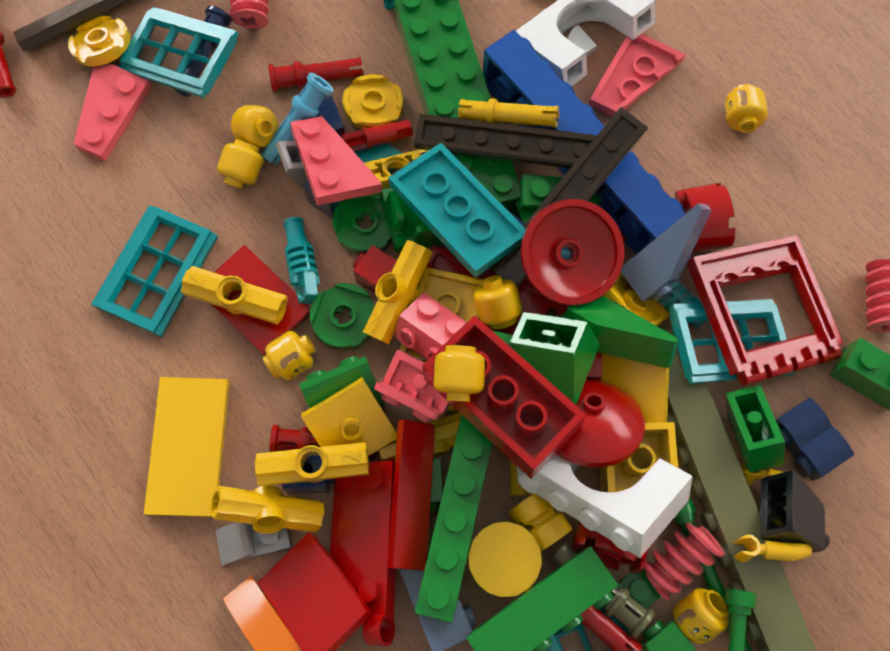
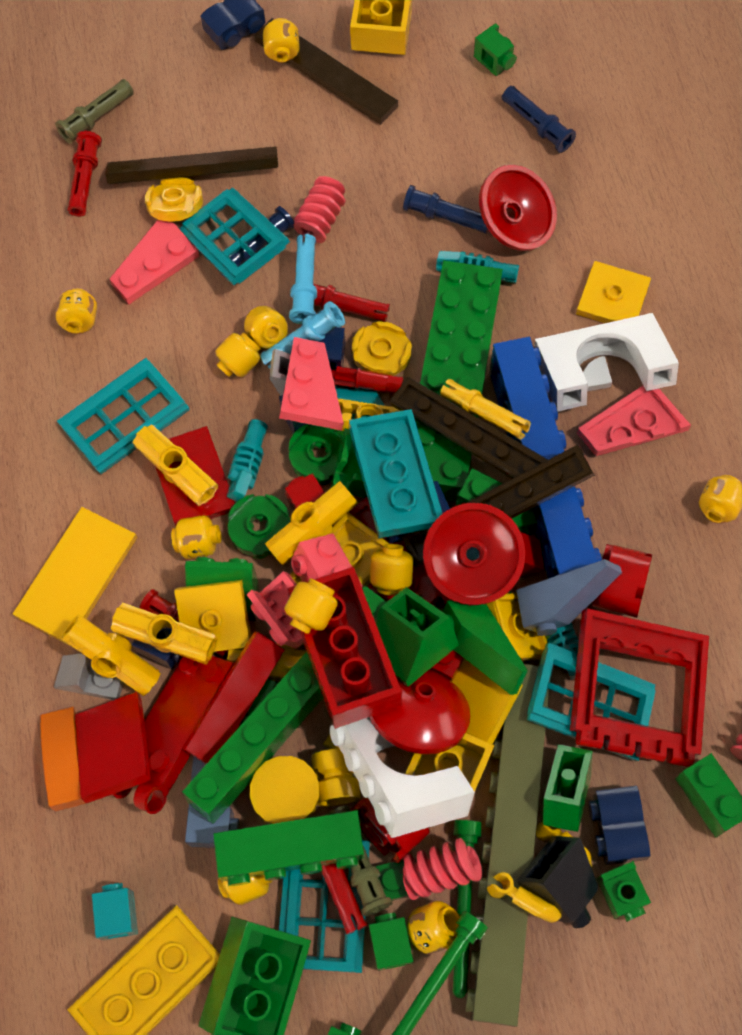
camera: 30 degrees right, 5 degrees down
(56, 188) = (76, 311): none -> yellow head
(275, 75) = (303, 290): none -> medium azure pin
(833, 496) = (611, 886): none -> green brick

